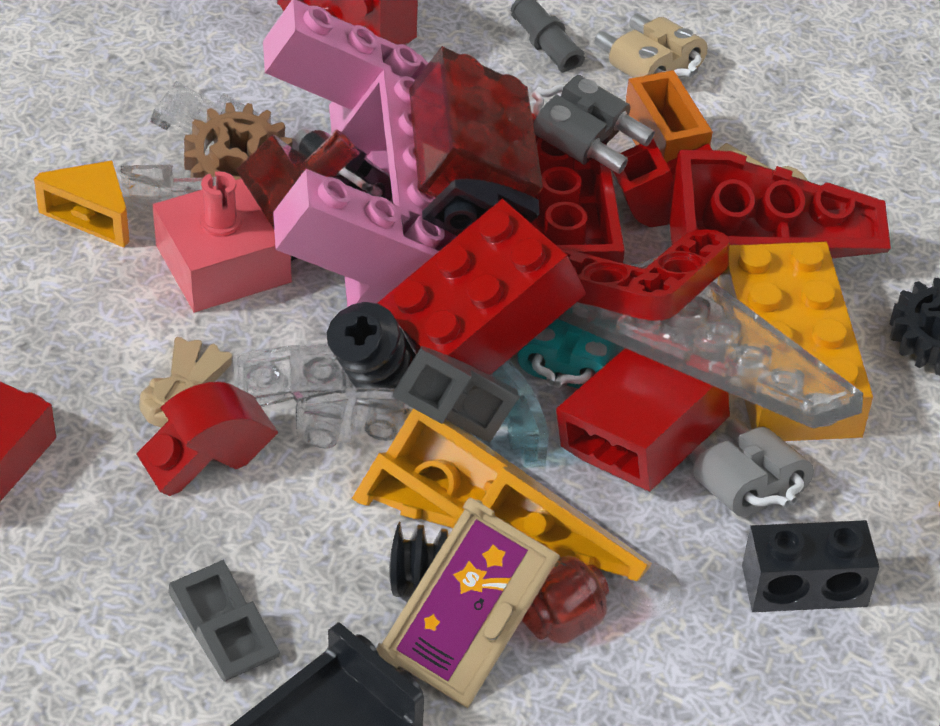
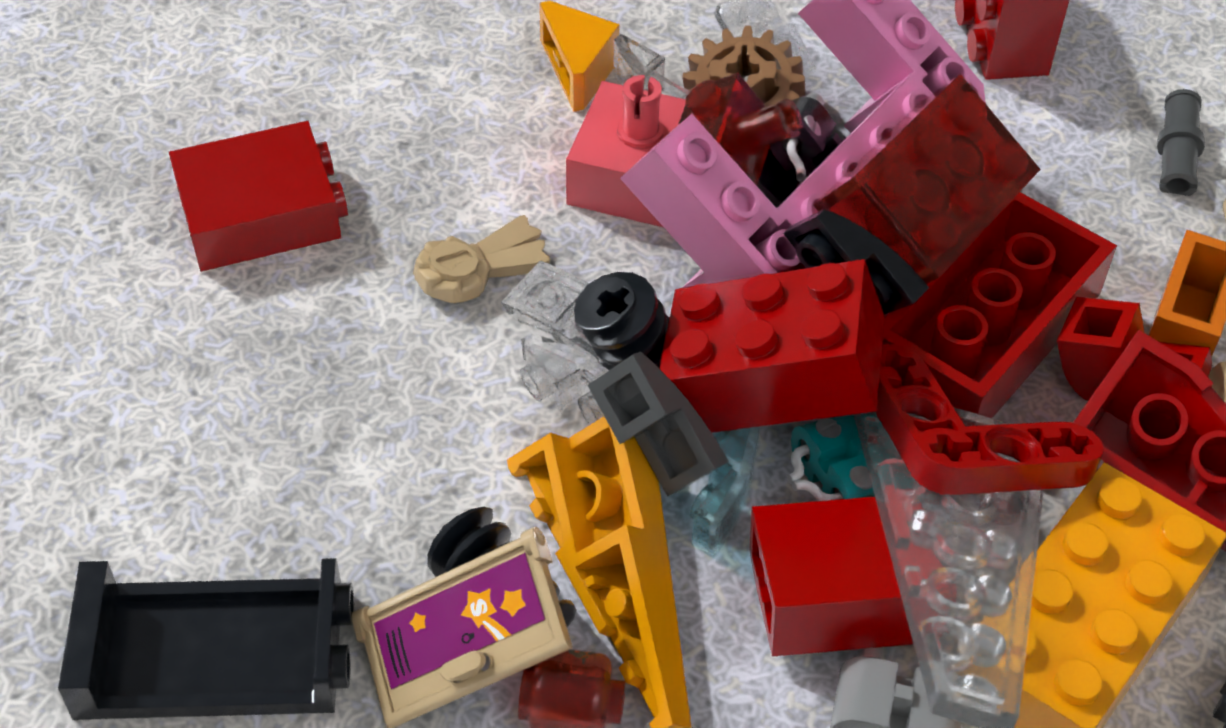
camera: 45 degrees right, 5 degrees up
(201, 426) = (441, 306): red brick -> none
(223, 621) = (282, 488): dark grey slope -> none
(584, 119) = (1073, 239): dark grey piece -> none

